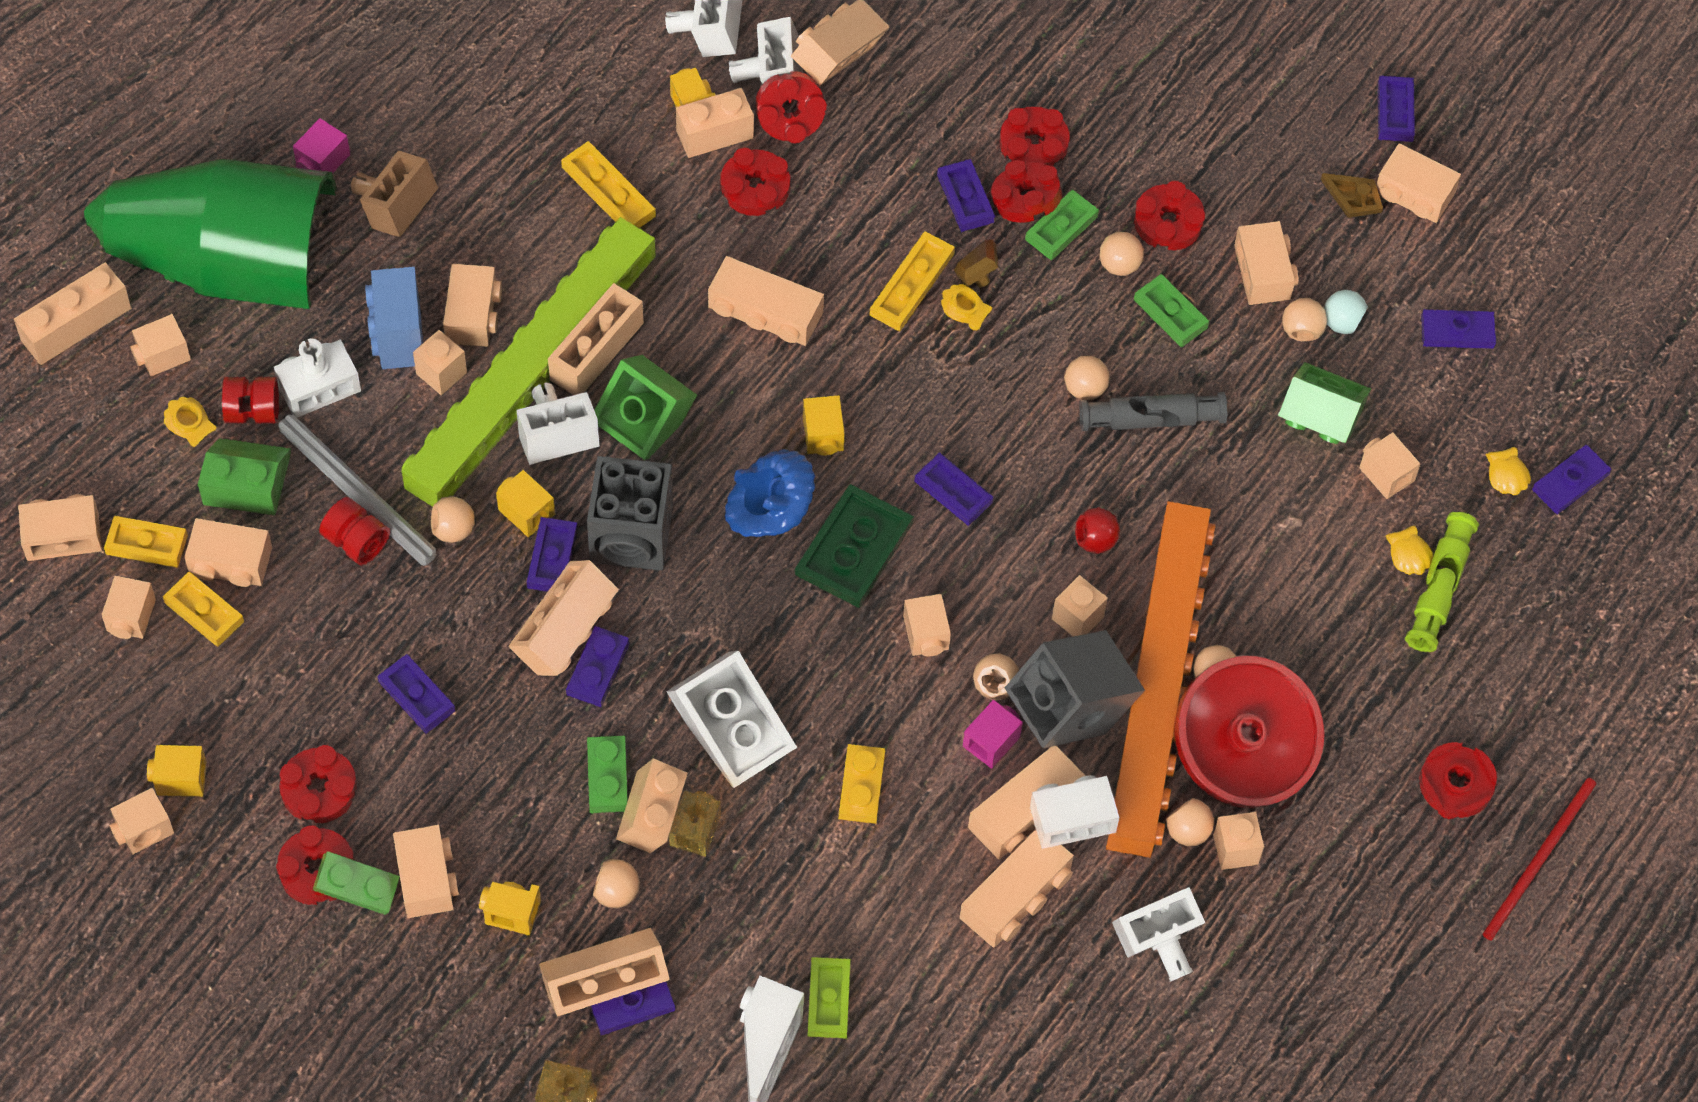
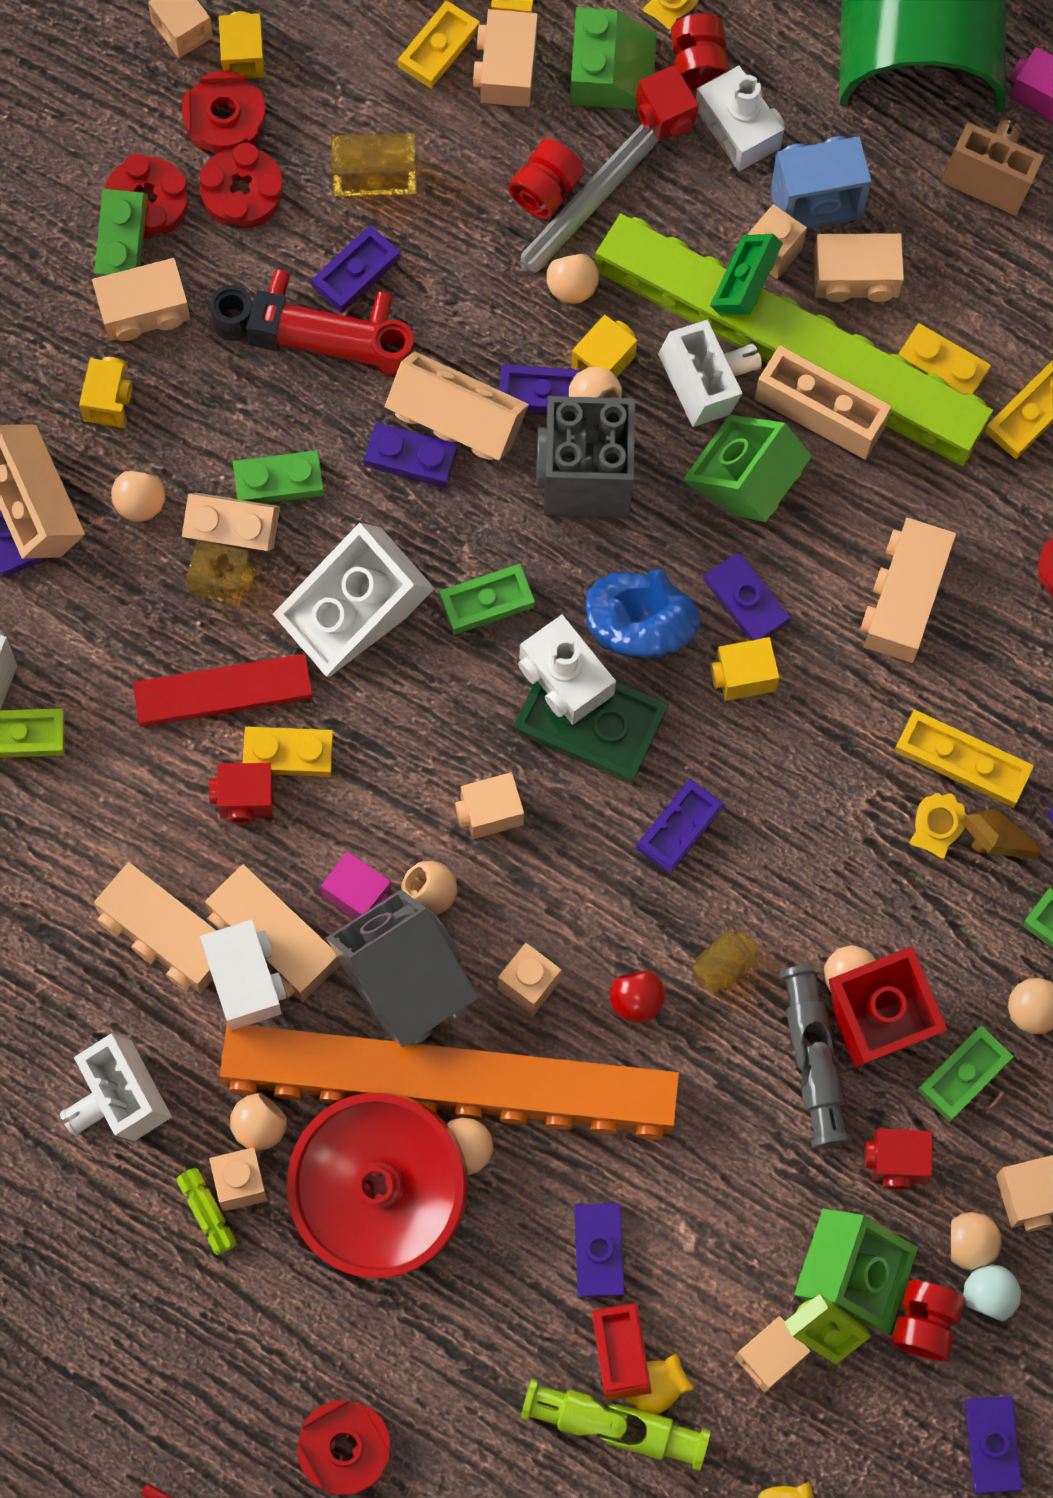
camera: 85 degrees right, 10 degrees up
(228, 777) = (219, 89): none -> red plate
(302, 424) = (666, 103): none -> red brick
(318, 668) = (373, 164): none -> clear yellow brick
(460, 760) = (276, 323): none -> red piece
(480, 374) = (746, 274): none -> green plate
(561, 256) = (941, 357): none -> yellow plate
(569, 504) = (595, 383): none -> light nougat piece
(740, 614) = (486, 599): none -> bright green plate
(757, 423) = (746, 598): none -> dark purple plate
(801, 832) = (222, 690): none -> red tile
(819, 549) = (566, 670): none -> white brick
(899, 816) = (242, 791): none -> red brick
(1071, 467) = (725, 961): none -> clear yellow brick
(1126, 350) = (885, 1007): none -> red slope
(1237, 360) = (899, 1157): none -> red brick
(1260, 872) = (206, 1211): none -> lime axle
(1301, 583) = (598, 1250): none -> dark purple plate
(1375, 418) = (827, 1329): none -> lime plate
(1379, 358) = (927, 1320): none -> red wheel
(1386, 570) = (621, 1352): none -> red tile

